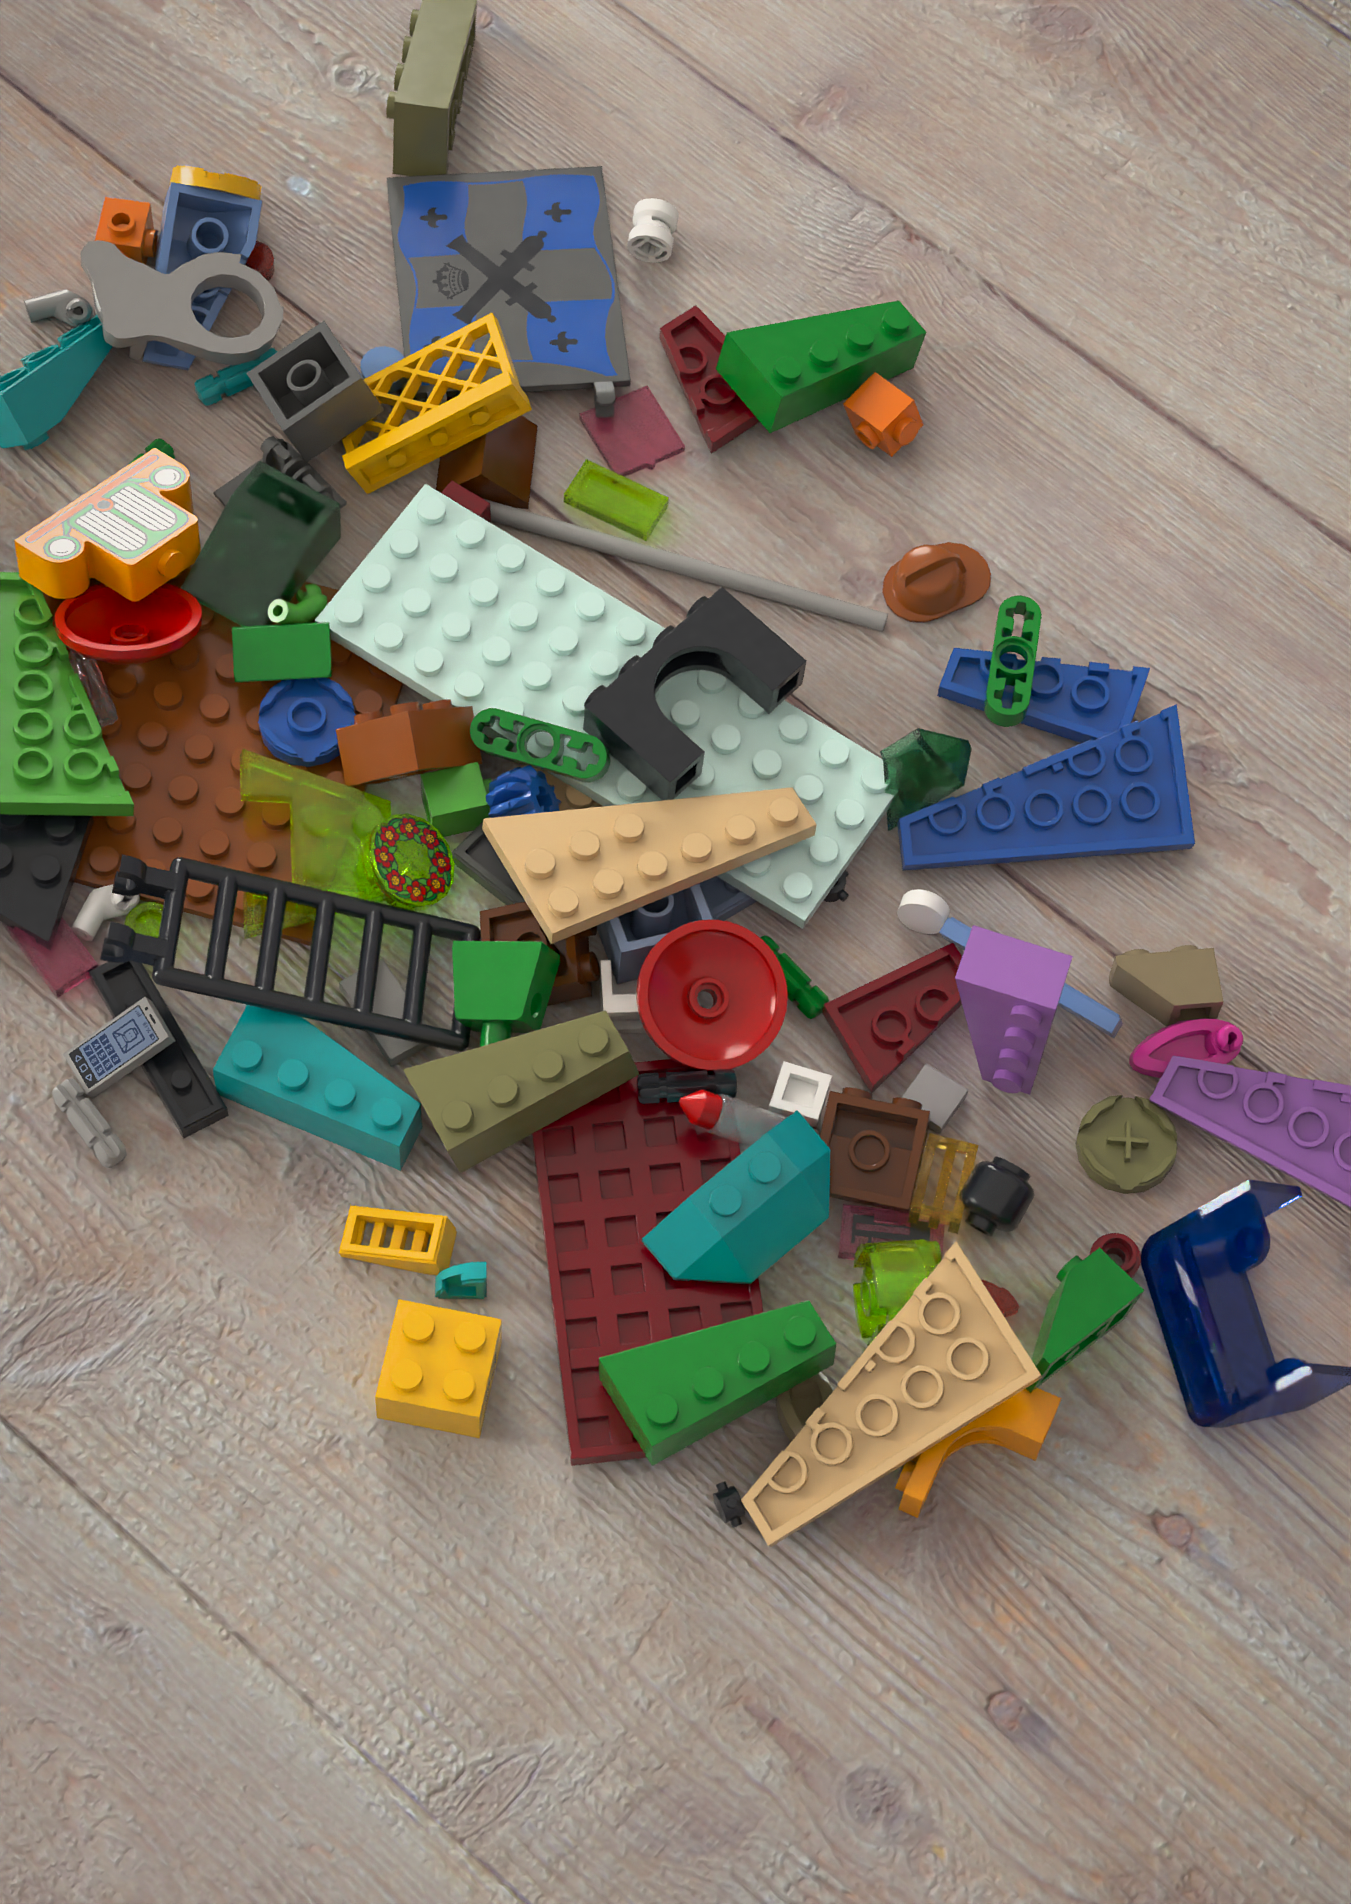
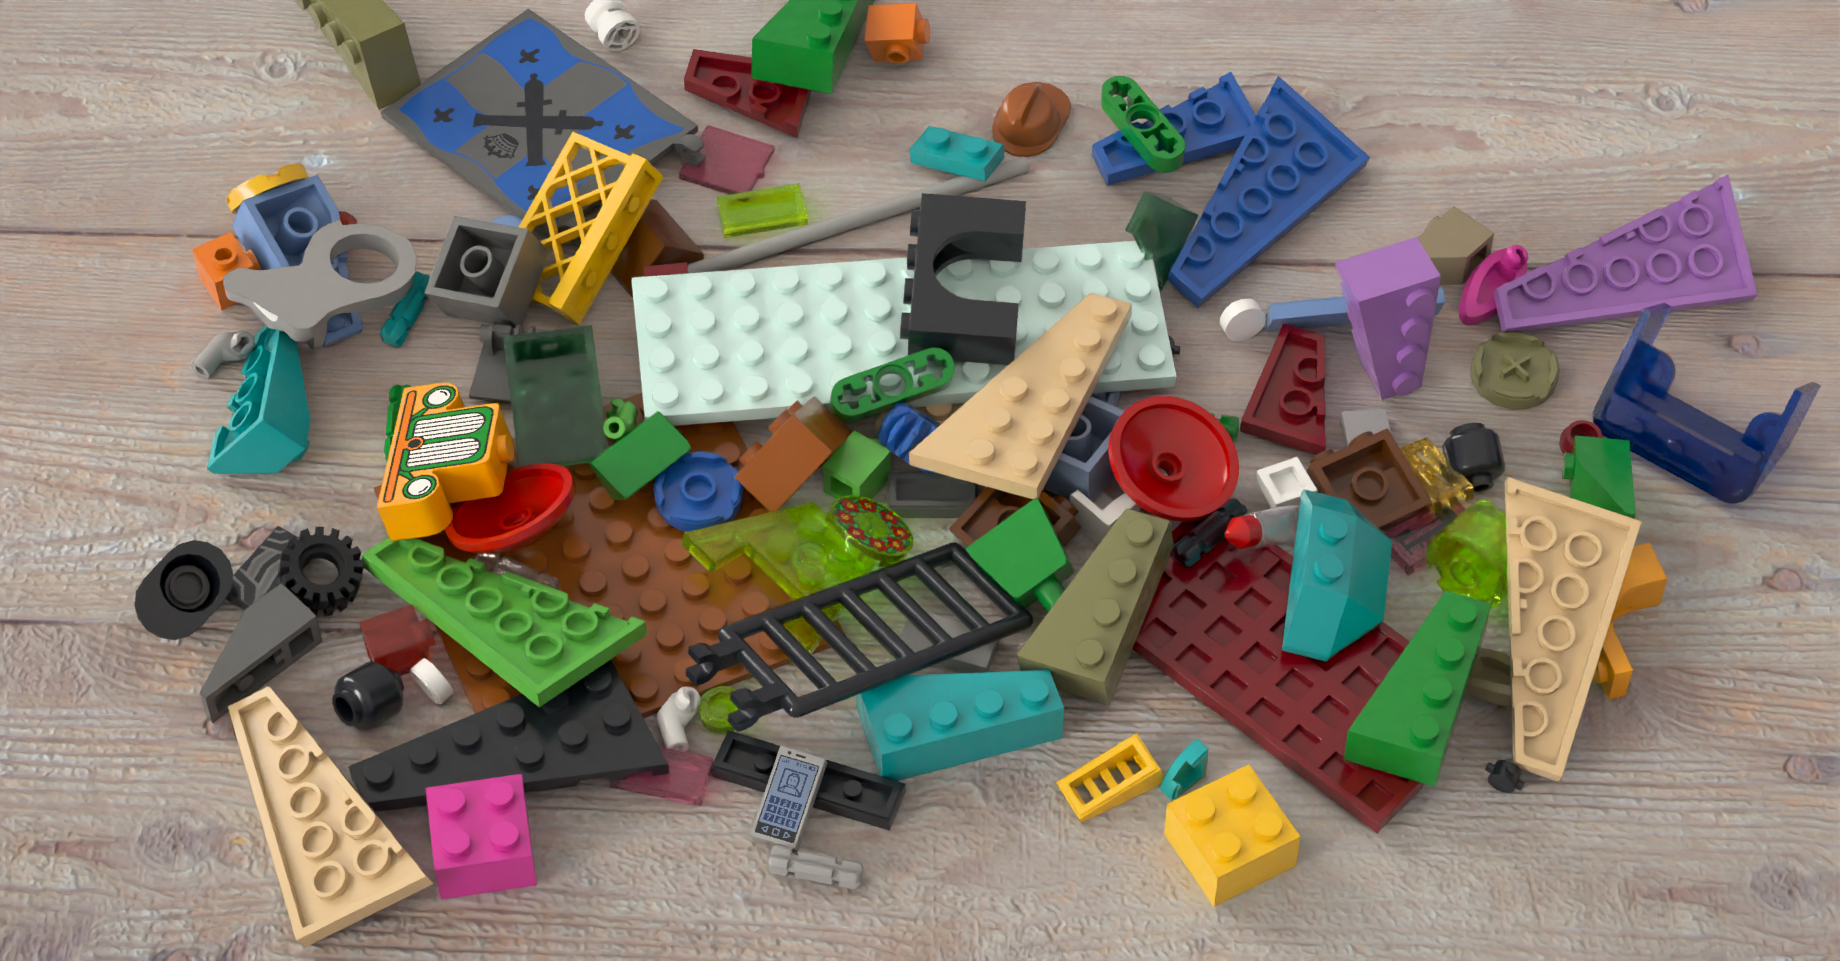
camera: 35 degrees left, 10 degrees down
(830, 569) = (957, 153): none -> teal plate

